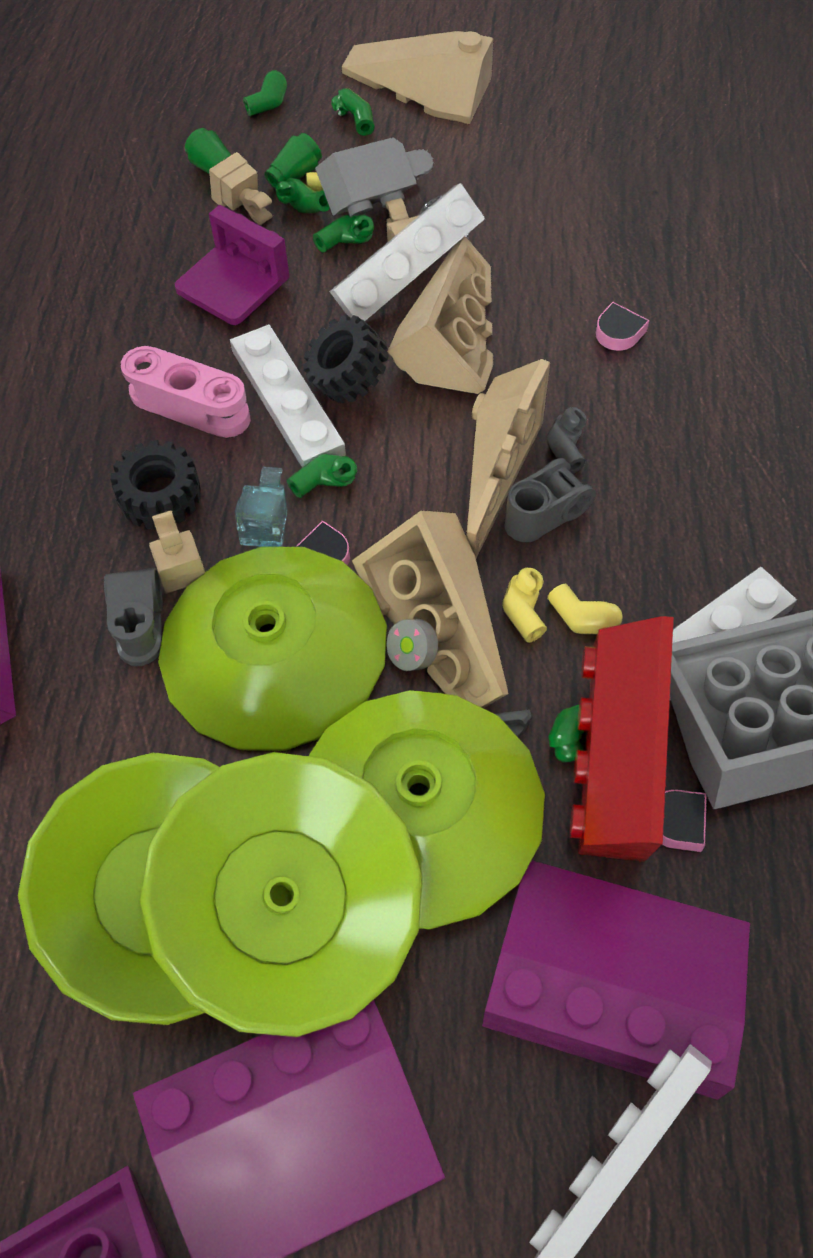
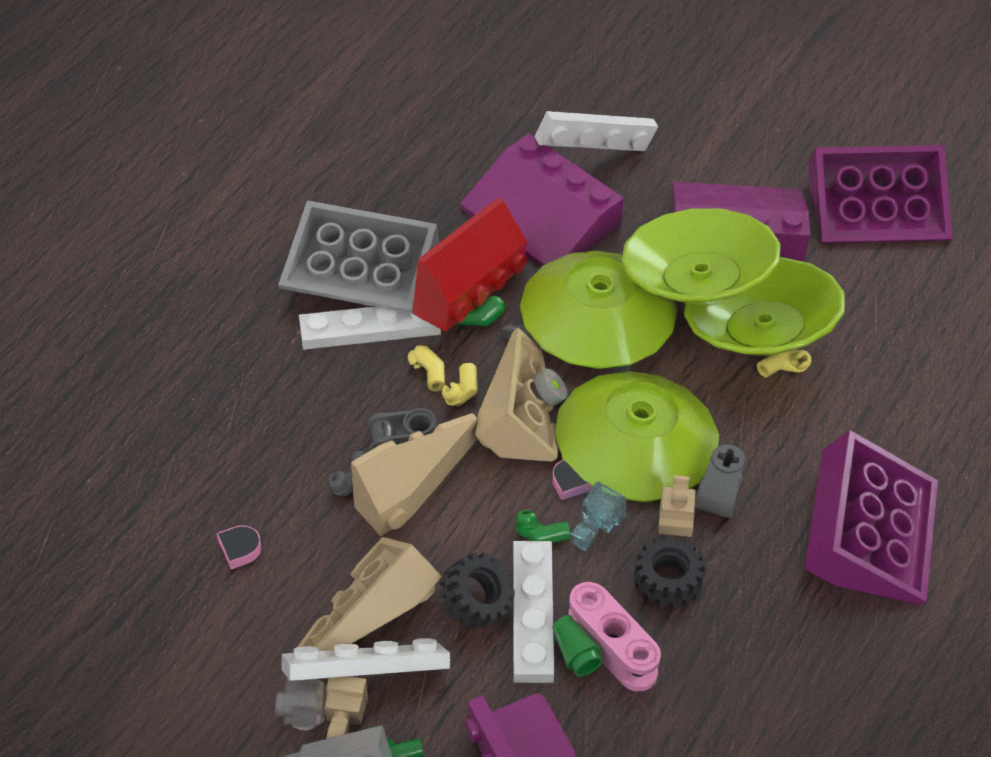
camera: 155 degrees left, 10 degrees down
(215, 355) = (577, 647): none -> green cone

